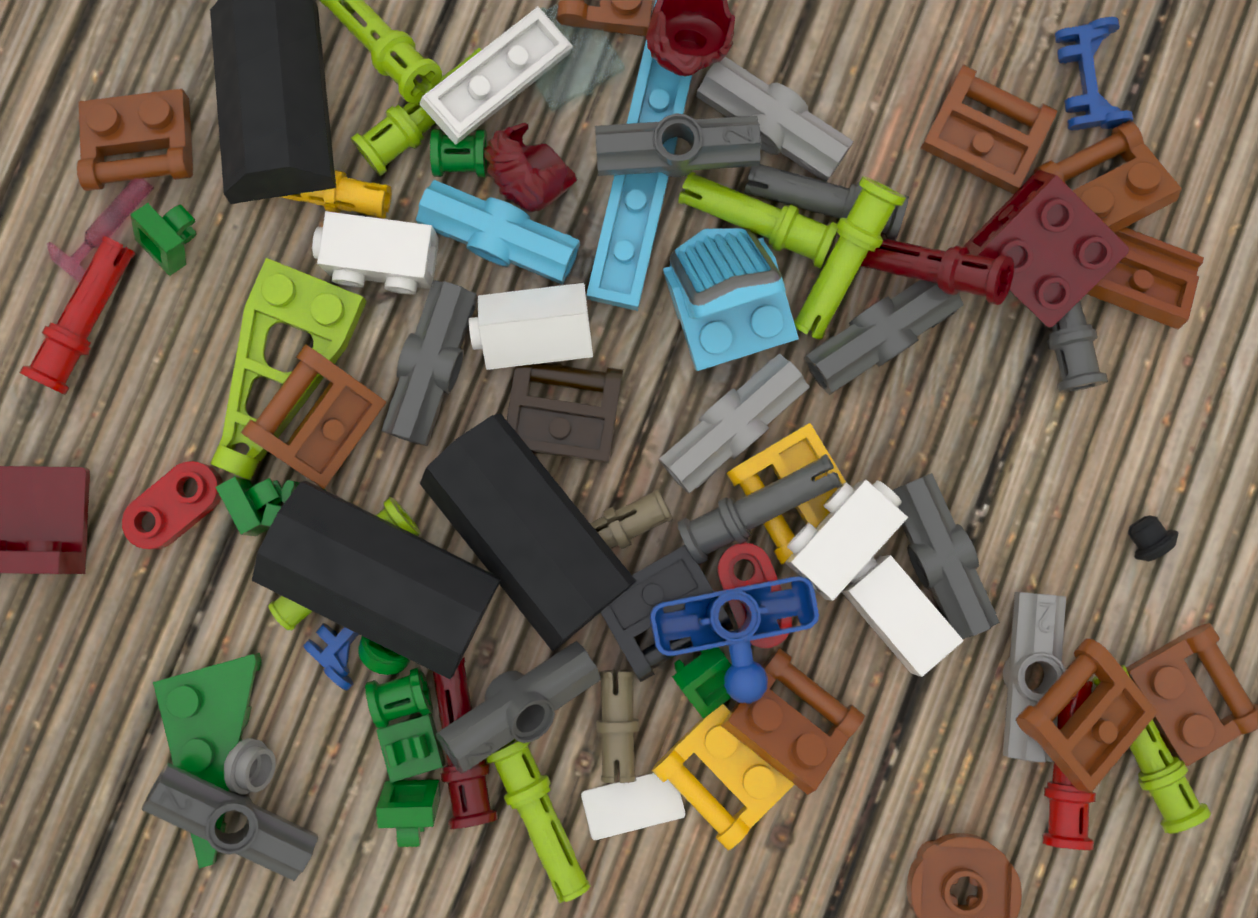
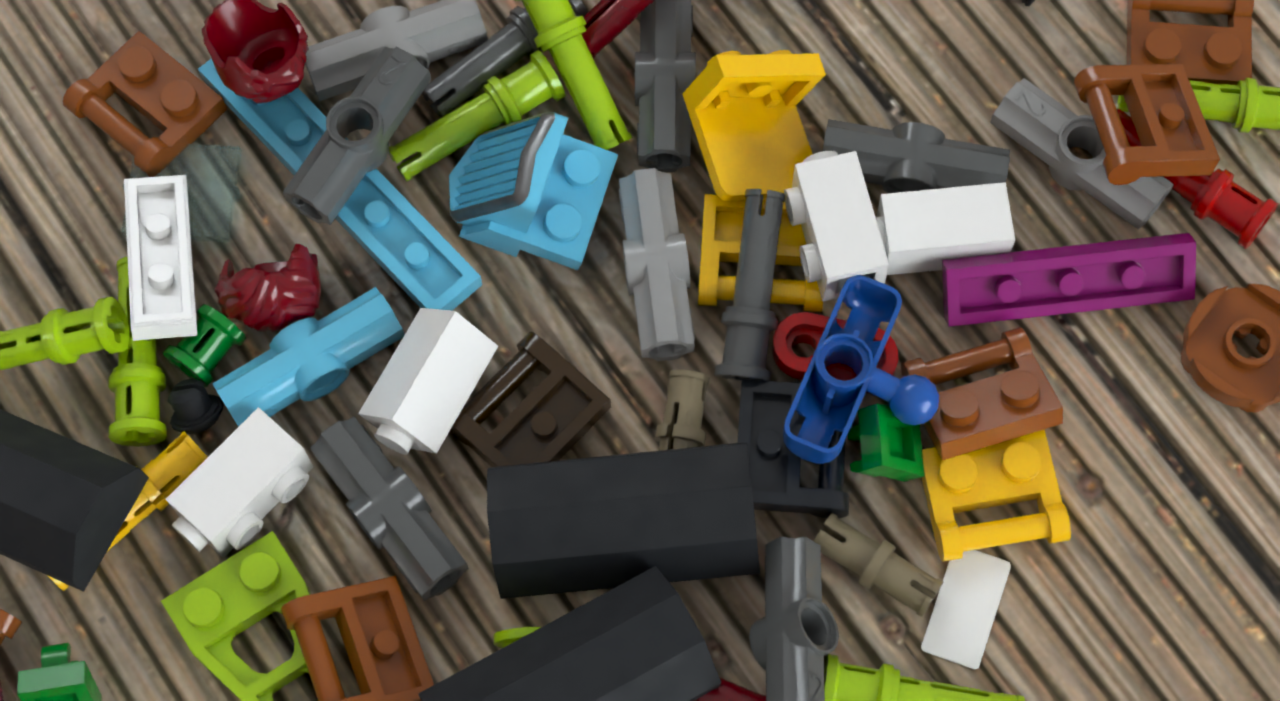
camera: 55 degrees left, 15 degrees down
(410, 178) = (193, 407): none -> black piece
(887, 422) = (750, 119): none -> yellow bracket
(926, 730) = (1069, 279): none -> magenta plate

